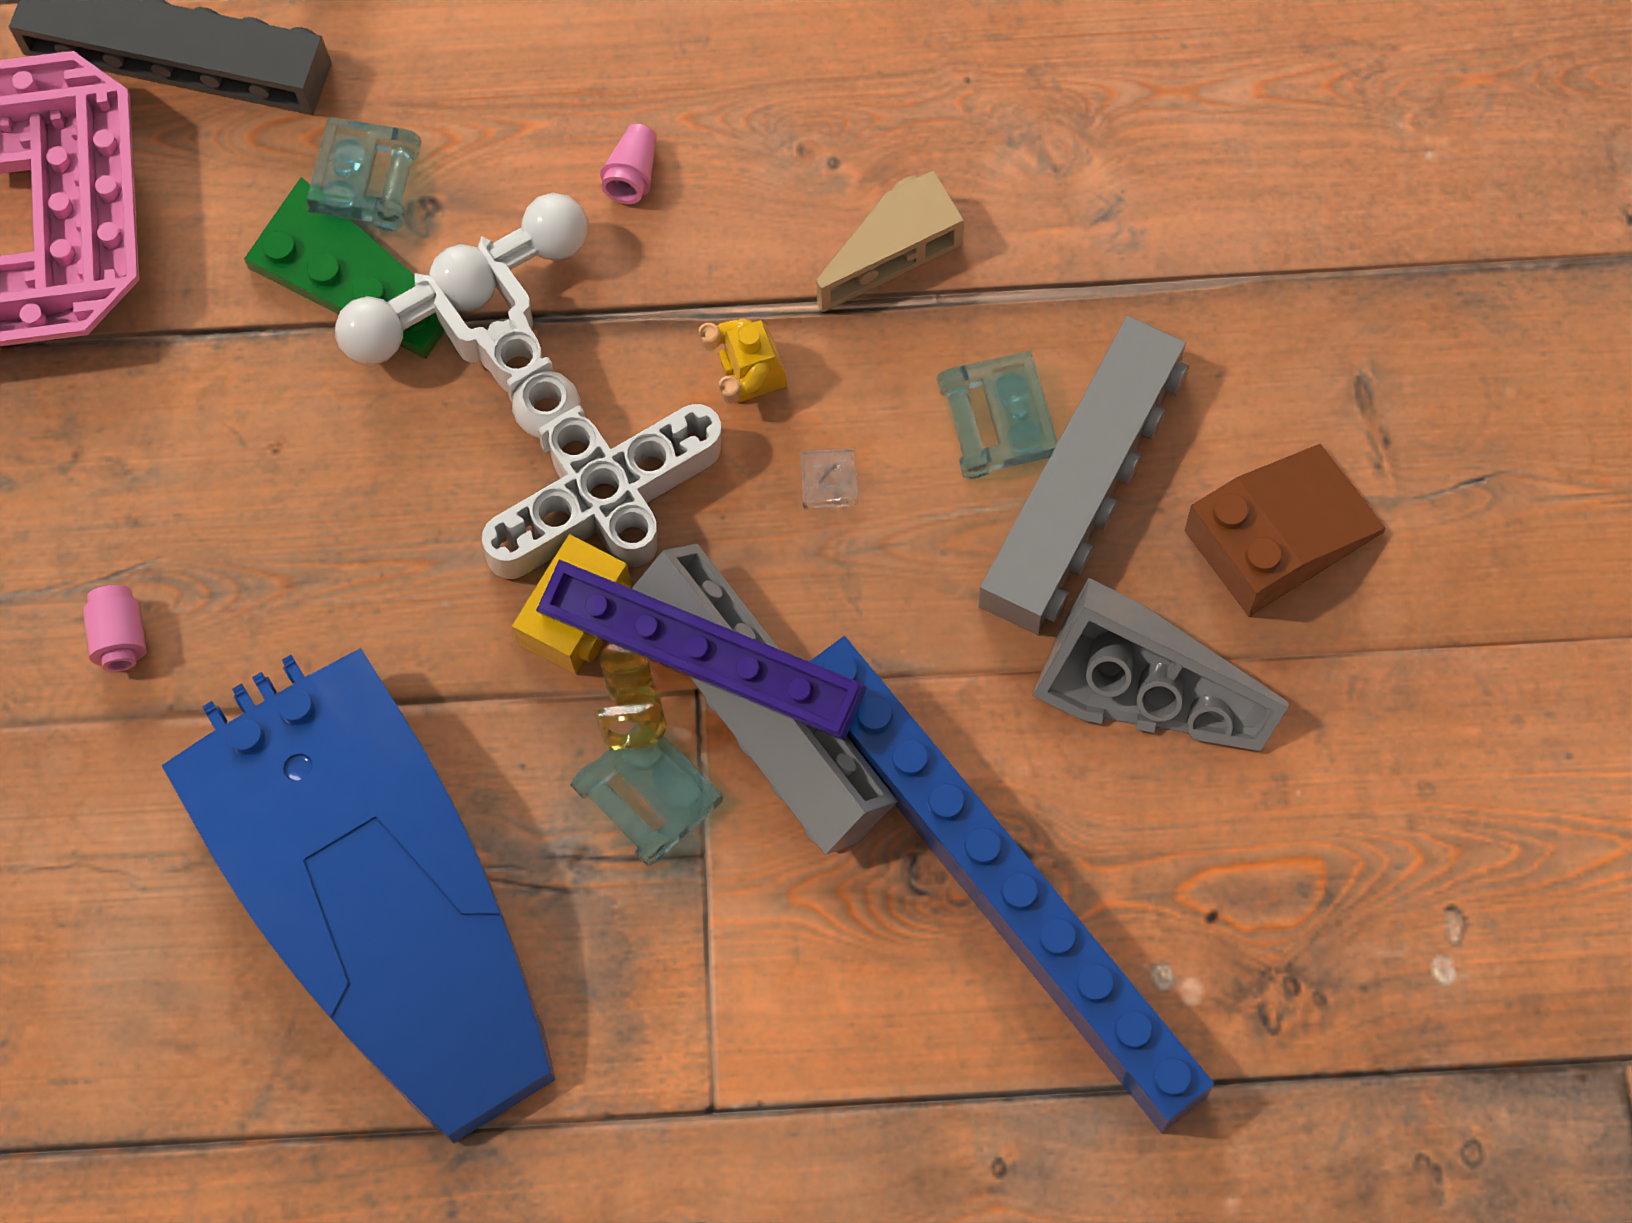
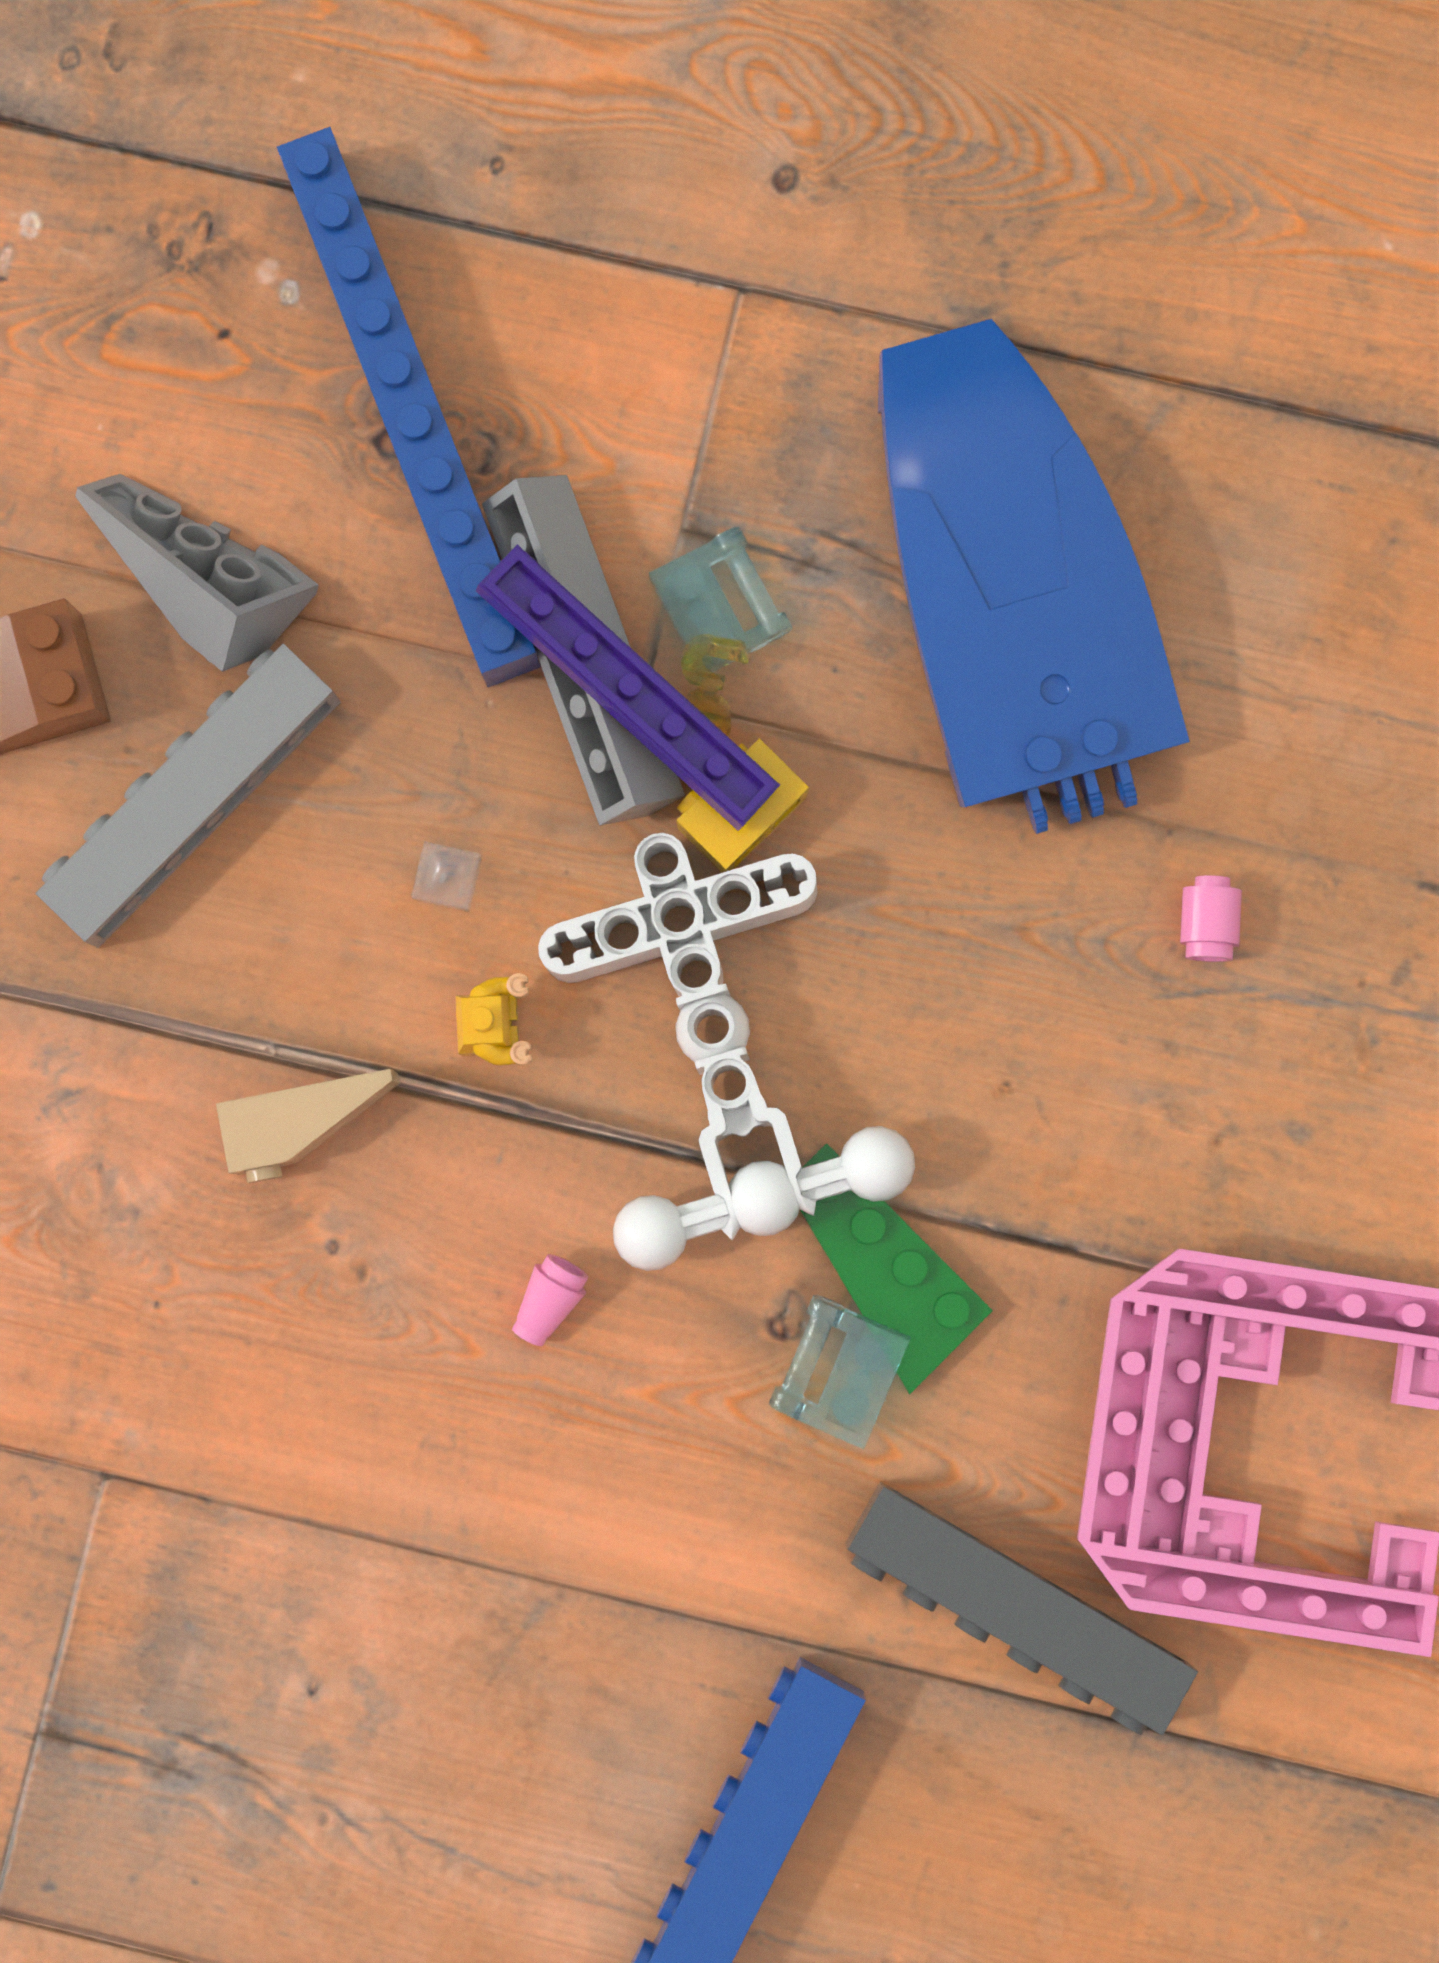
camera: 165 degrees left, 15 degrees up
(1015, 408) = (234, 886): clear light blue plate -> none

